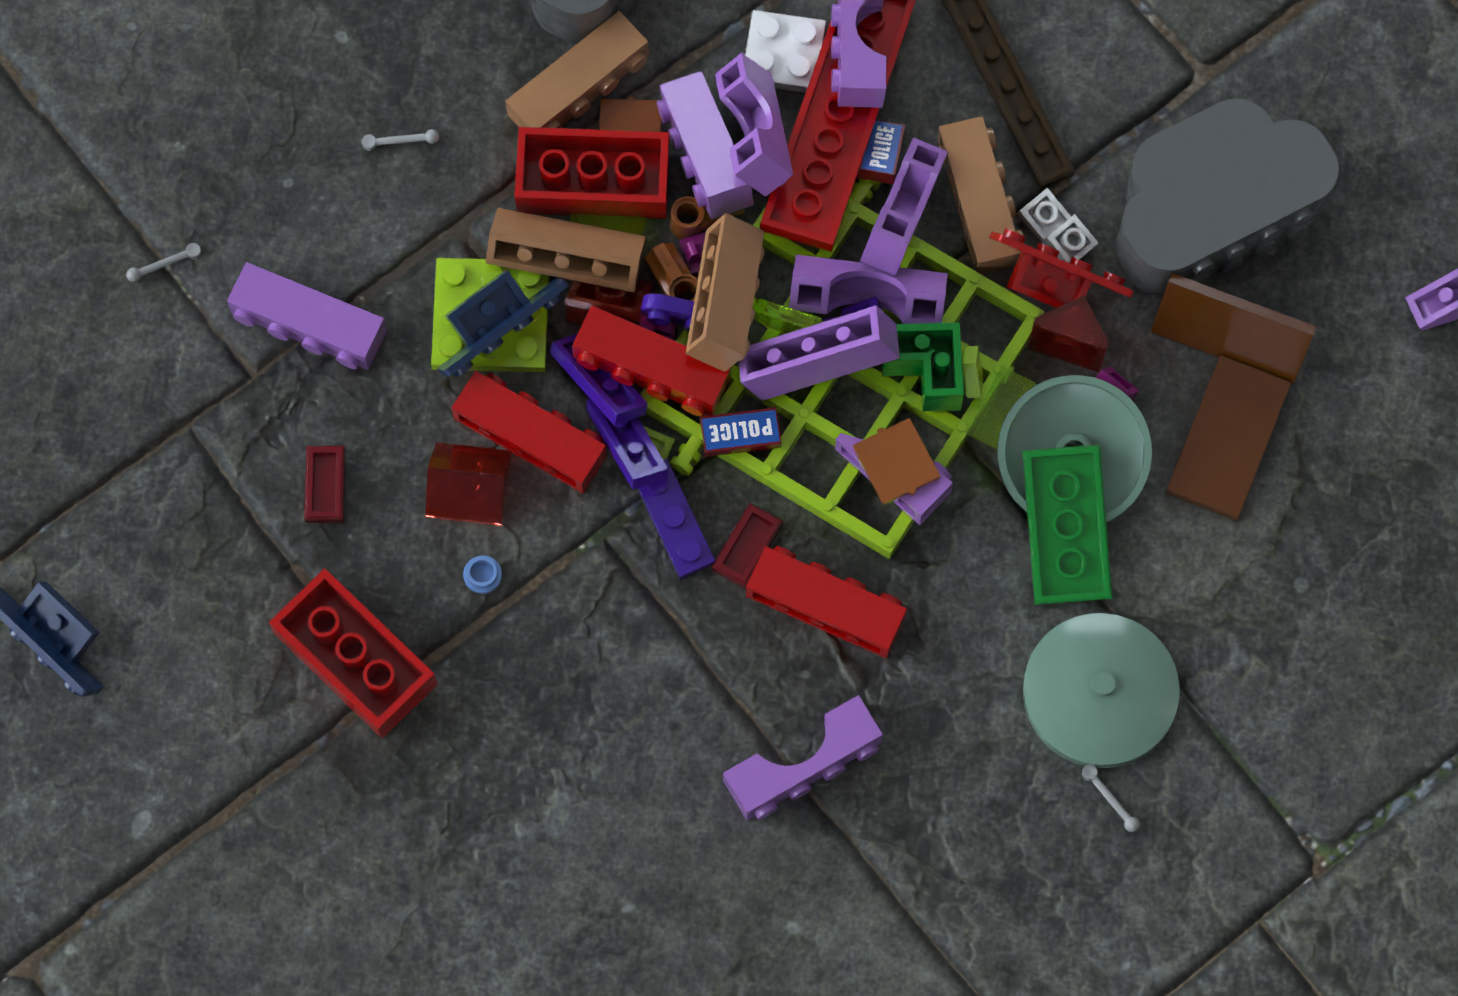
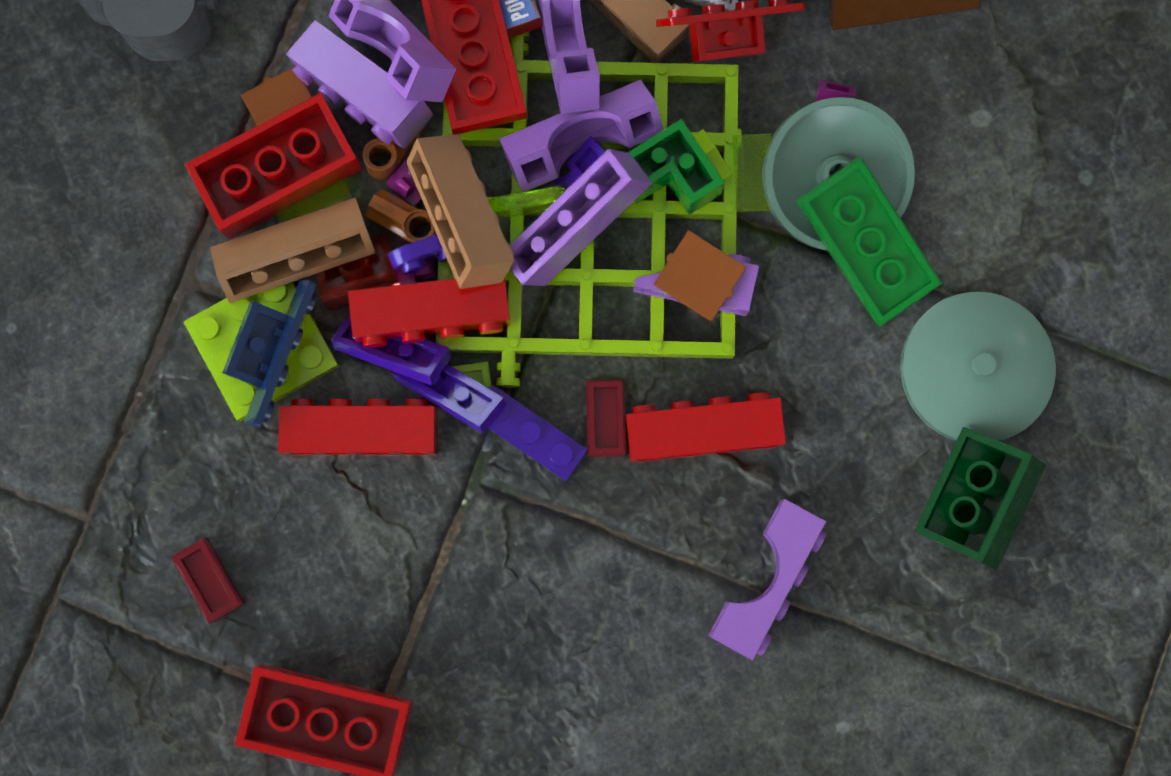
camera: 30 degrees left, 10 degrees up
(306, 316) = (99, 441): medium lavender brick -> none
(369, 142) = (62, 250): light grey hinge -> none
(467, 483) = (331, 505): clear red slope -> none
(482, 574) = (394, 580): medium blue plate -> none
(580, 76) = (210, 85): medium nougat brick -> none
(740, 432) = (543, 325): tile -> none
(1032, 796) = (980, 497): none -> dark green slope
(1070, 335) = (778, 72): clear red slope -> none
(1090, 773) = (1070, 468): light grey hinge -> none
(1228, 438) = (953, 85): reddish brown tile -> none

